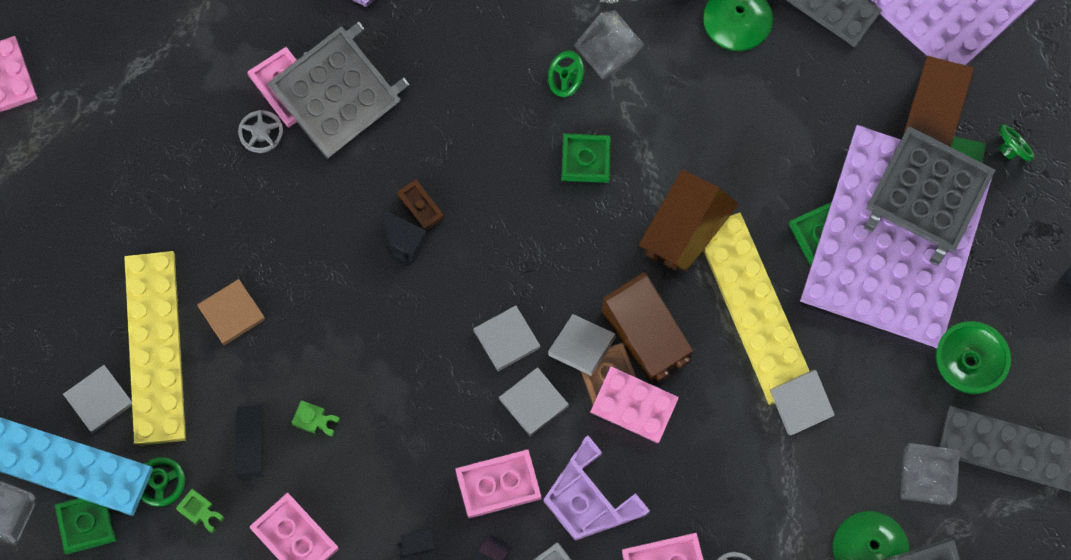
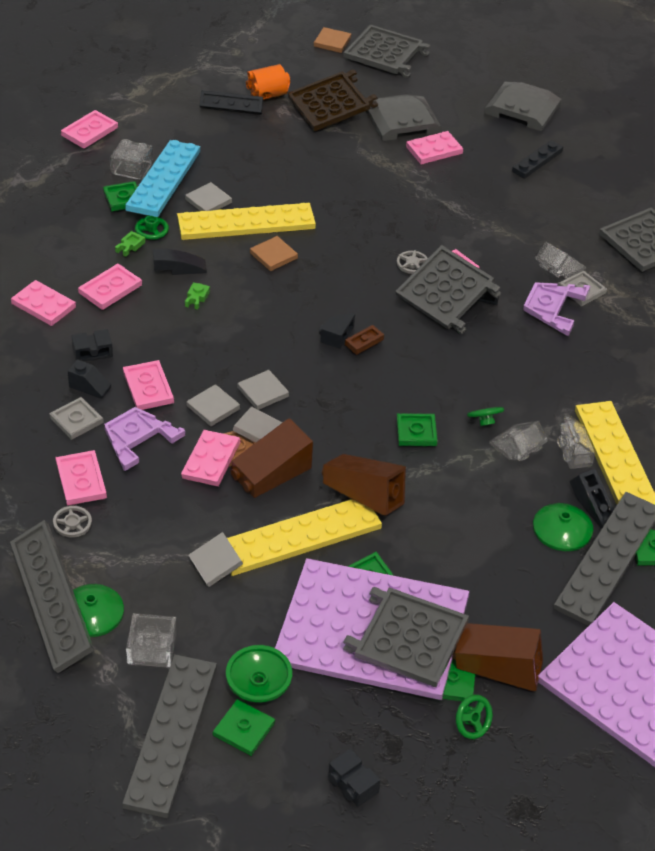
camera: 85 degrees right, 25 degrees down
(1031, 380) = (244, 727): none -> green plate

